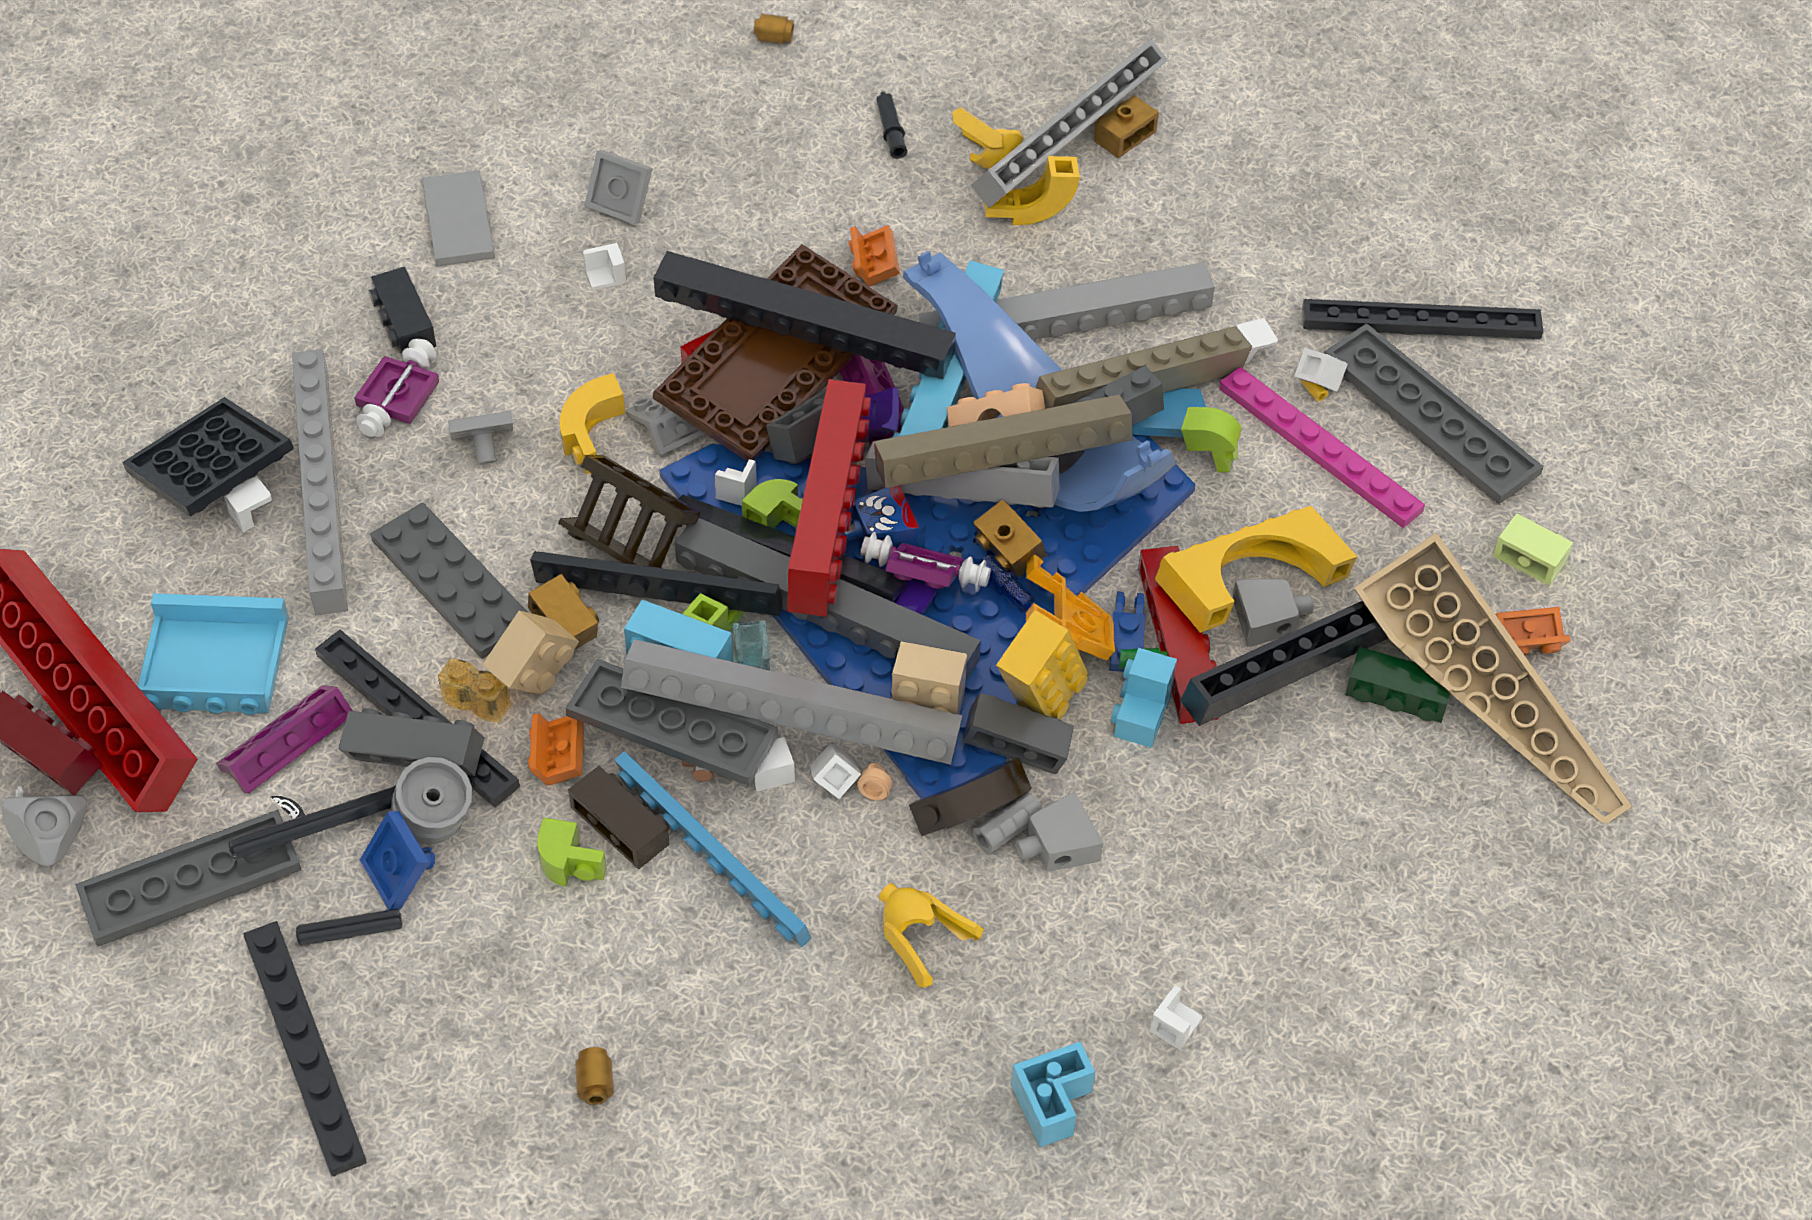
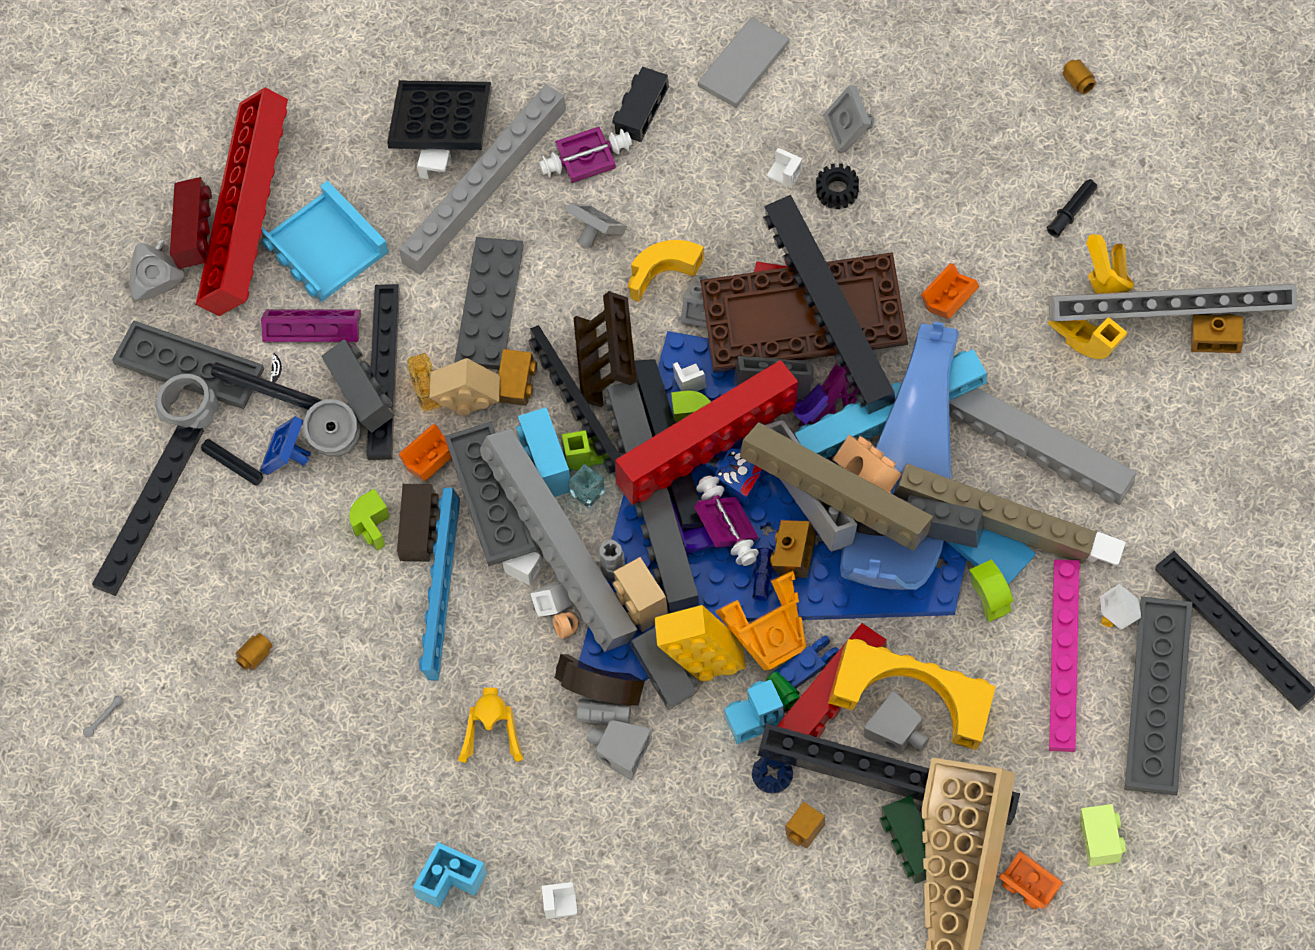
camera: 55 degrees right, 10 degrees up
(200, 911) = (170, 392): none -> light grey piece
(666, 236) = (837, 174): none -> black tyre
(866, 671) = (610, 558): none -> light grey axle
(1227, 748) = (769, 783): none -> dark blue gear
(1301, 754) = (804, 825): none -> pearl gold brick

